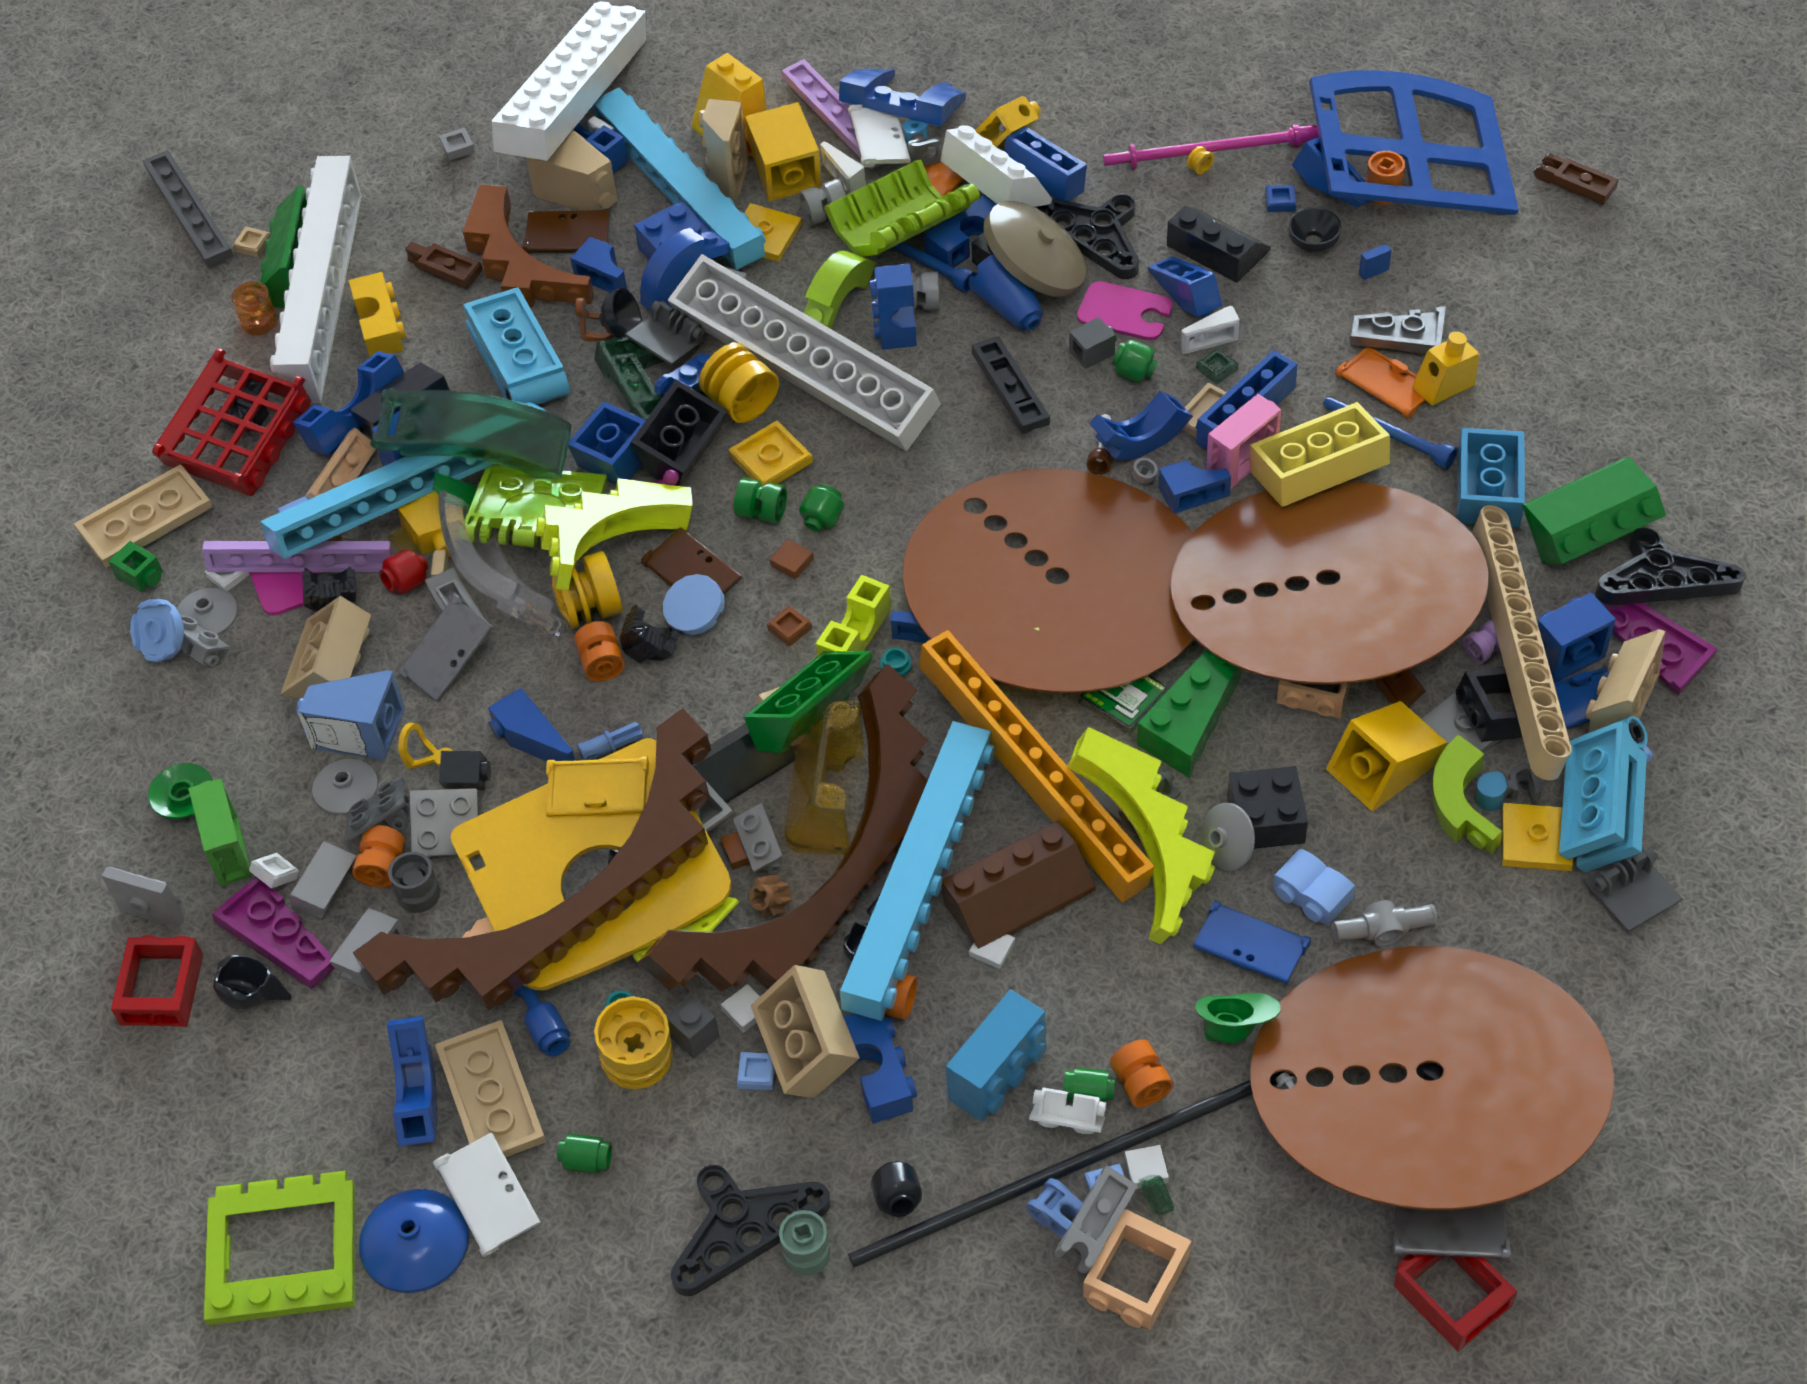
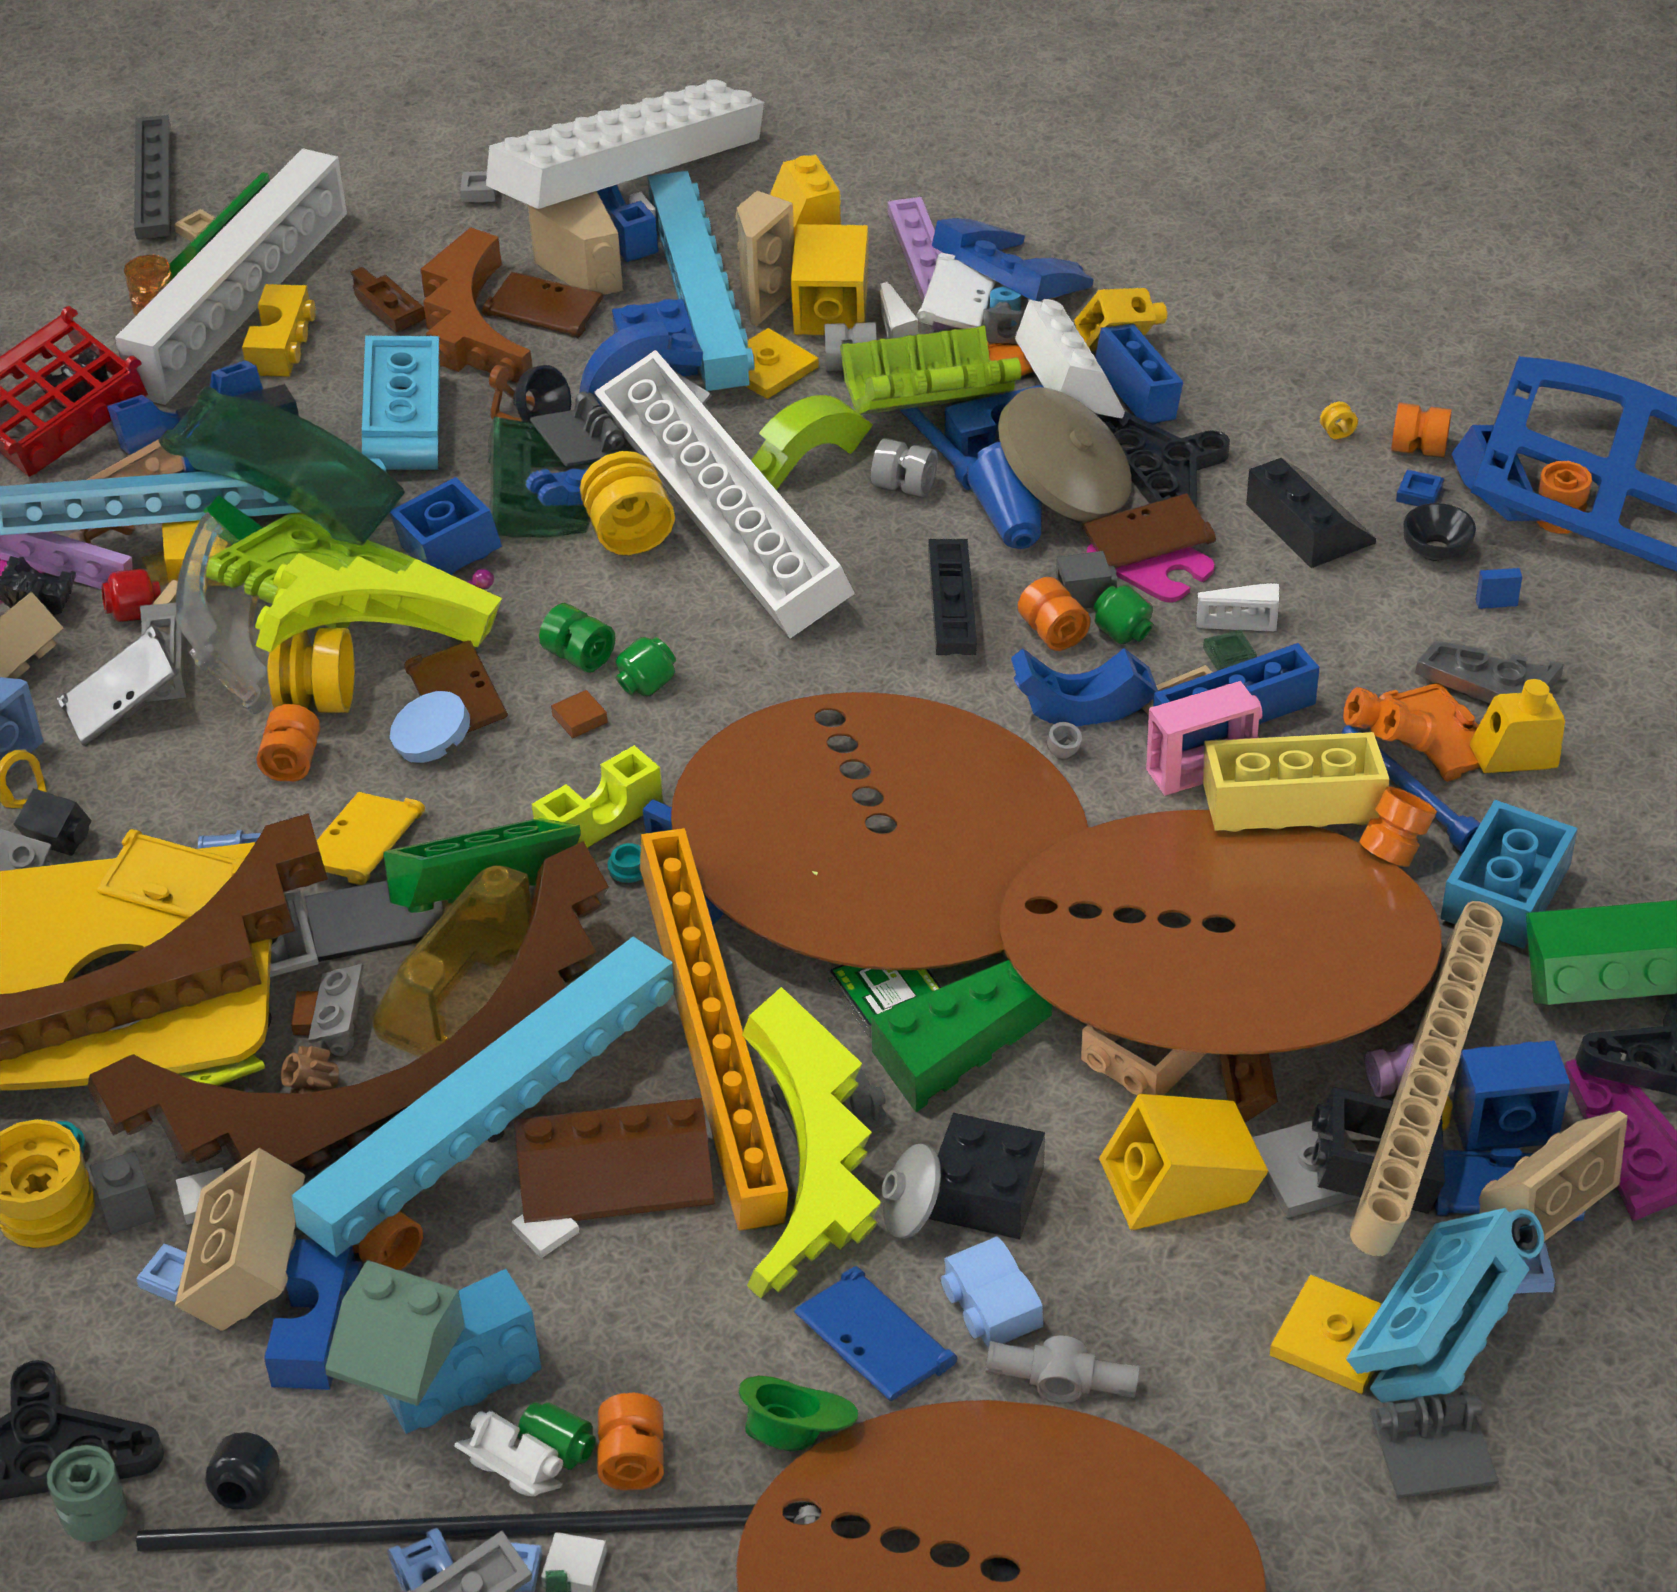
camera: 20 degrees right, 10 degrees down
(527, 728) = (153, 796): blue slope -> none
(598, 262) = (553, 342): blue arch -> none
(646, 641) = (347, 746): black hair -> none
(677, 432) = (523, 535): black slope -> none
(699, 695) = (362, 832): none -> yellow door
(771, 454) = (624, 594): yellow plate -> none
(789, 626) = (529, 784): dark orange tile -> none
(893, 306) = (853, 444): blue arch -> none
(971, 1061) = (394, 1332): none -> sand green slope
(1085, 374) = (1053, 613): none -> orange wheel
(1099, 459) = (1017, 711): reddish brown hinge -> none
(1115, 295) = (1136, 537): none -> reddish brown door
(1188, 285) = (1242, 551): blue slope -> none
(1190, 486) = (1114, 775): blue arch -> none
(1261, 152) = (1421, 430): none -> orange wheel
(1294, 136) = (1317, 403): dark pink bar -> none
(1360, 387) = (1390, 719): none -> orange axle
(1404, 465) = (1396, 829): none -> orange wheel
(1453, 772) = (1246, 1222): lime arch -> none
(1494, 788) = (1305, 1253): leg -> none

